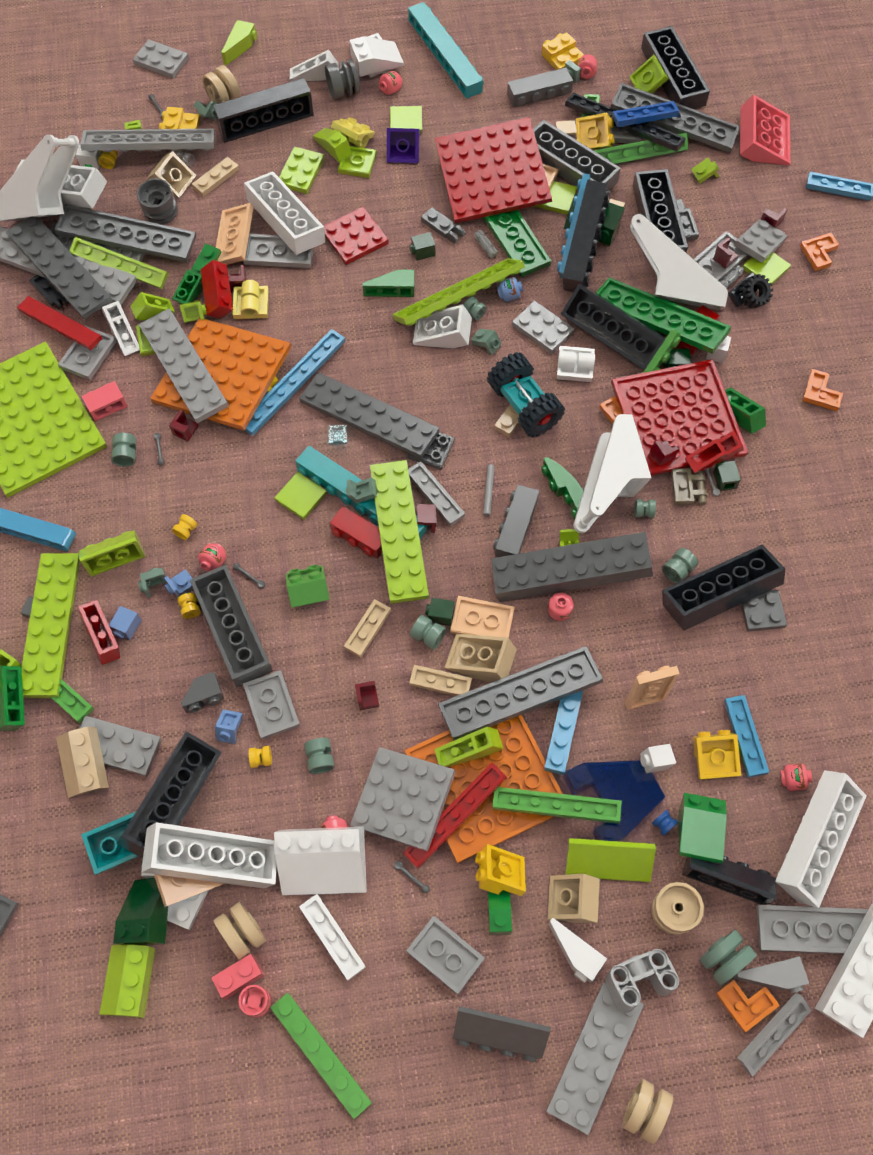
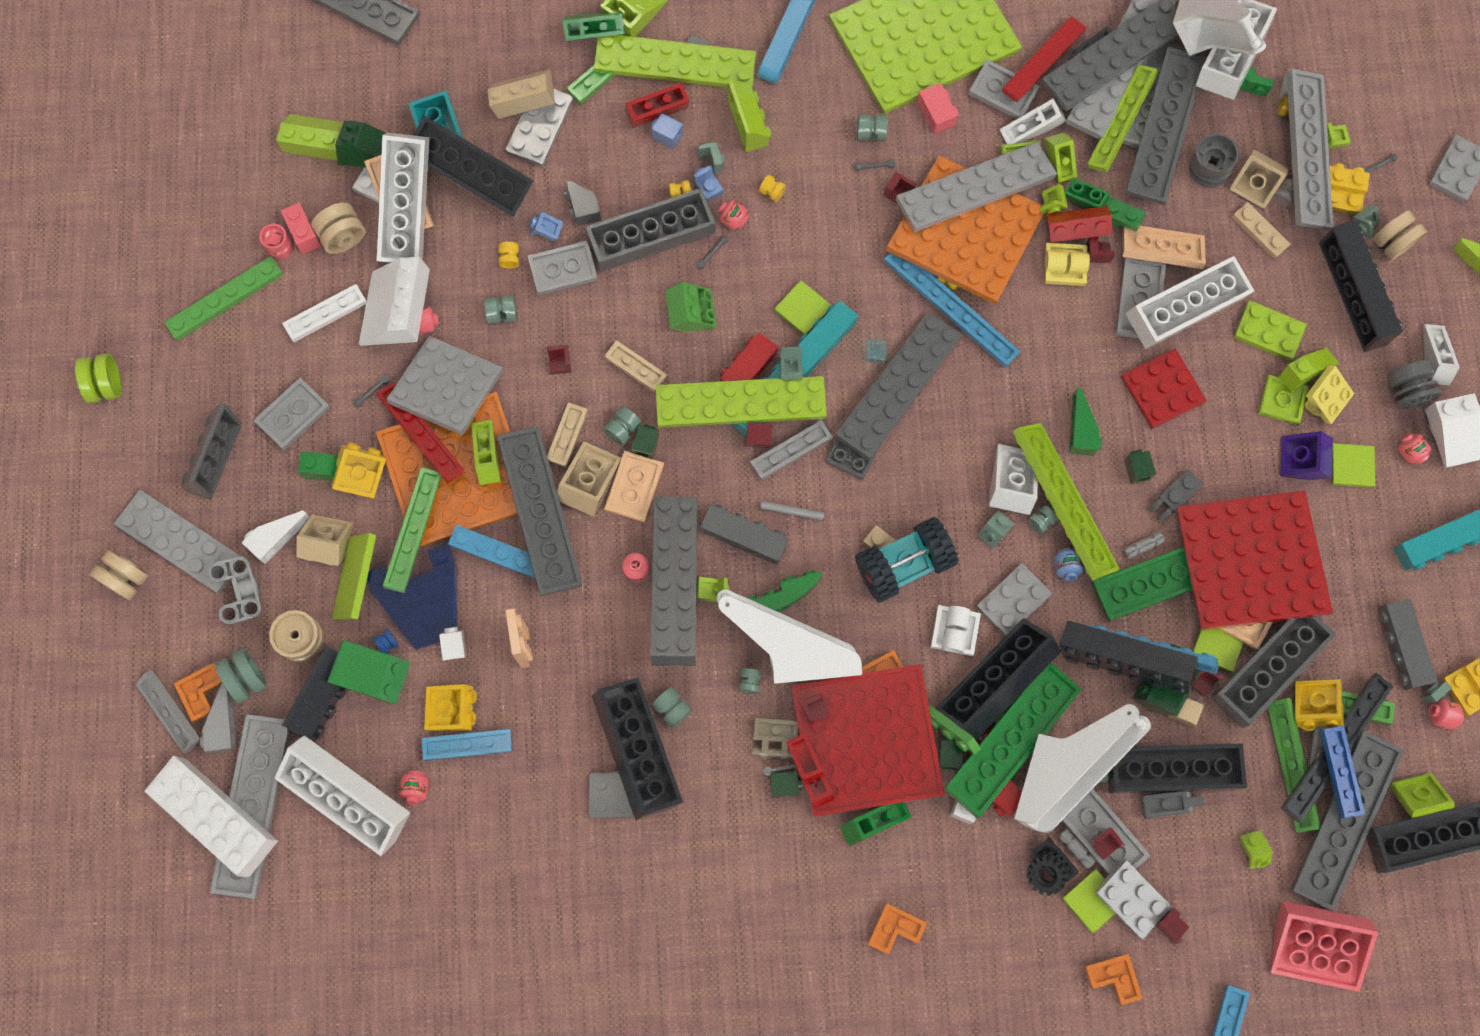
camera: 90 degrees right, 10 degrees up
(567, 127) = (1327, 666): tan panel -> none

